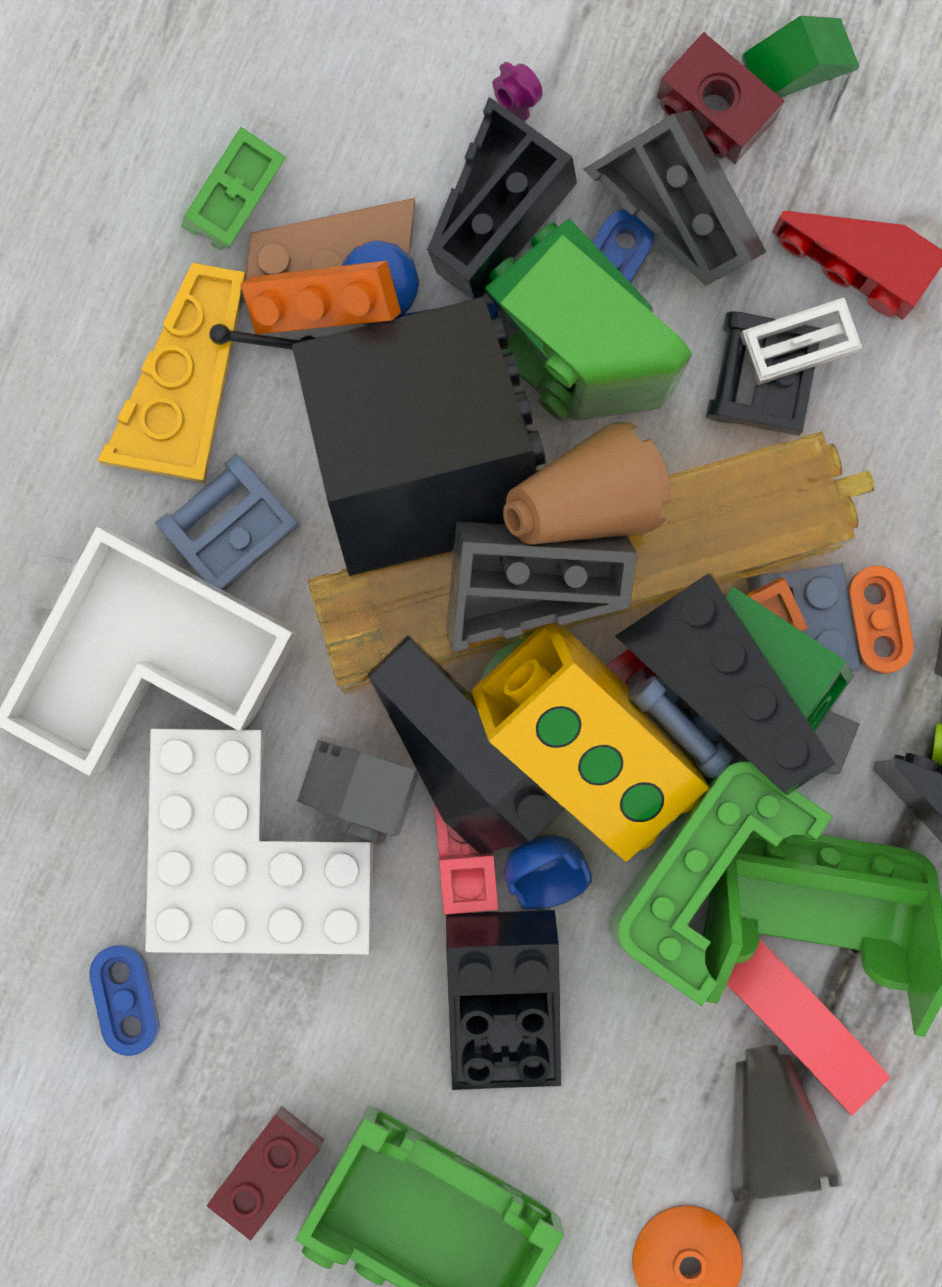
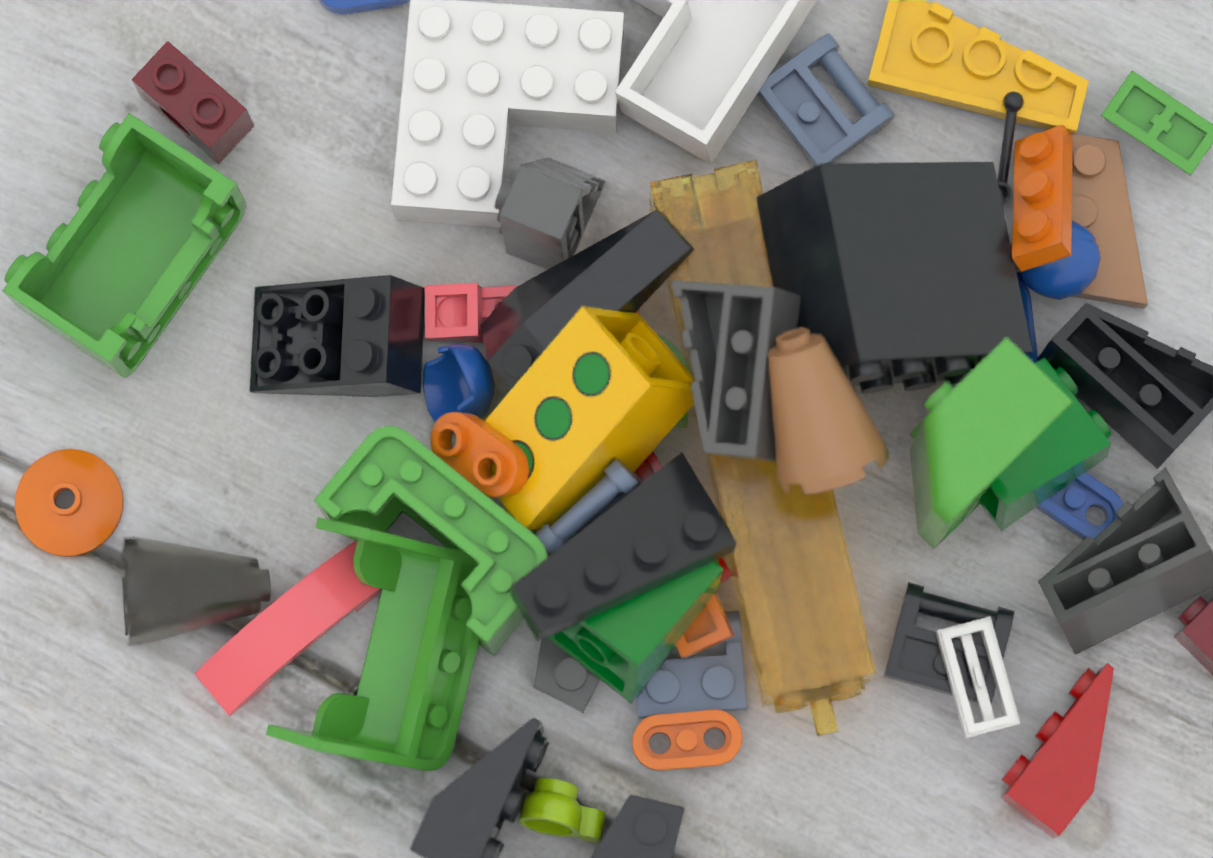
camera: 100 degrees right, 5 degrees down
(631, 843) = (476, 449): none -> orange plate

